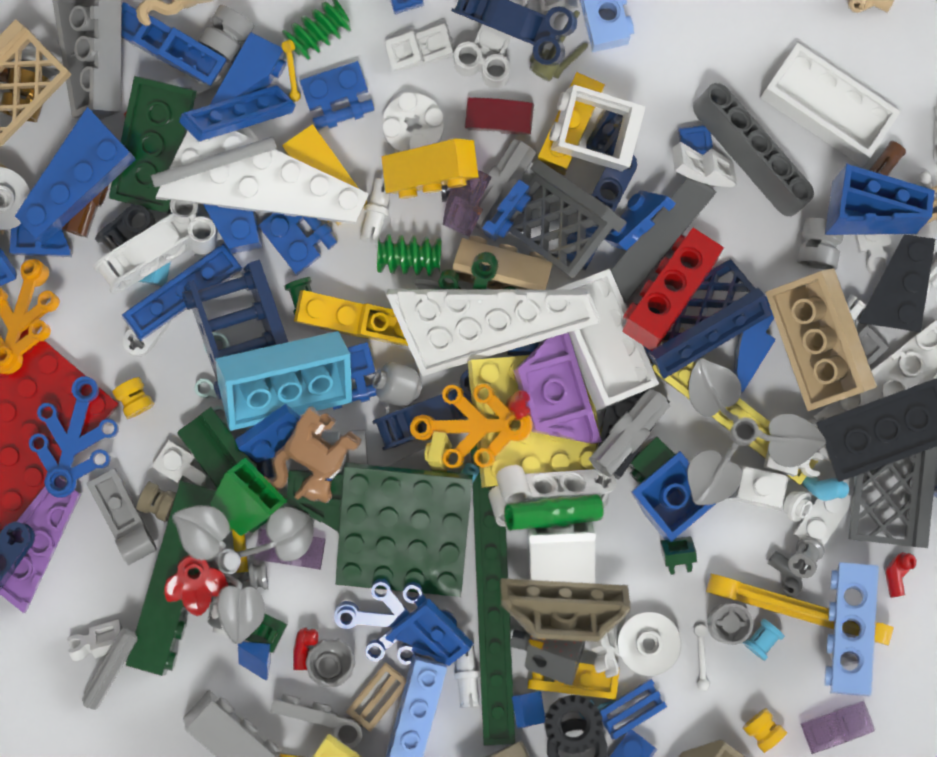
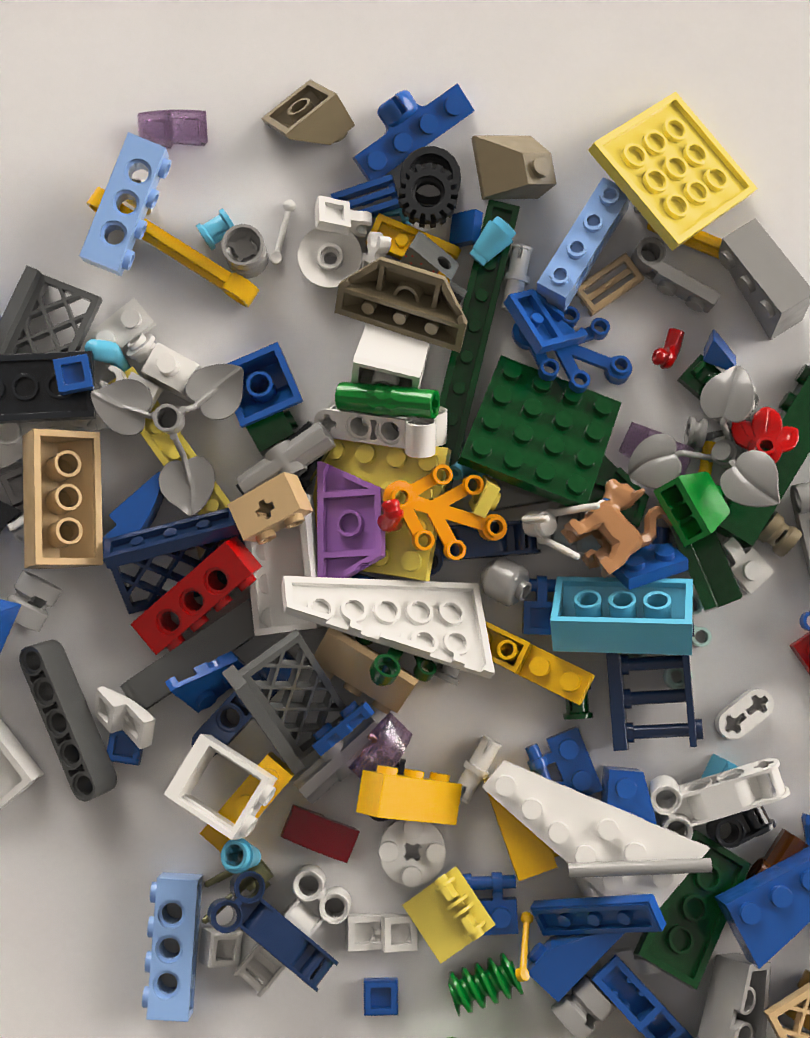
camera: 165 degrees left, 0 degrees up
(133, 397) = (773, 639): yellow wheel -> none
(168, 301) = (719, 735): blue tile -> none
(330, 663) = (648, 326): light grey hair -> none
(366, 78) = (448, 914): none -> light yellow hinge
(378, 443) = (543, 525): none -> white plant
(409, 255) = (456, 711): green piece -> none
(500, 699) = (492, 240): none -> medium azure cone
(563, 74) = (239, 856): none -> medium azure cone
(605, 134) = (216, 779): dark blue plate -> none
(644, 376) = (254, 508): none -> tan brick
(653, 679) = (336, 217): none -> white plate
(678, 552) = (273, 331): dark green tile -> none
(764, 730) = (243, 143): yellow wheel -> none
(791, 583) = (171, 284): dark grey arm -> none
(802, 557) = (152, 295): light grey bush -> none
(846, 452) = (73, 374): none -> blue plate
(896, 571) = (67, 258): red arm -> none

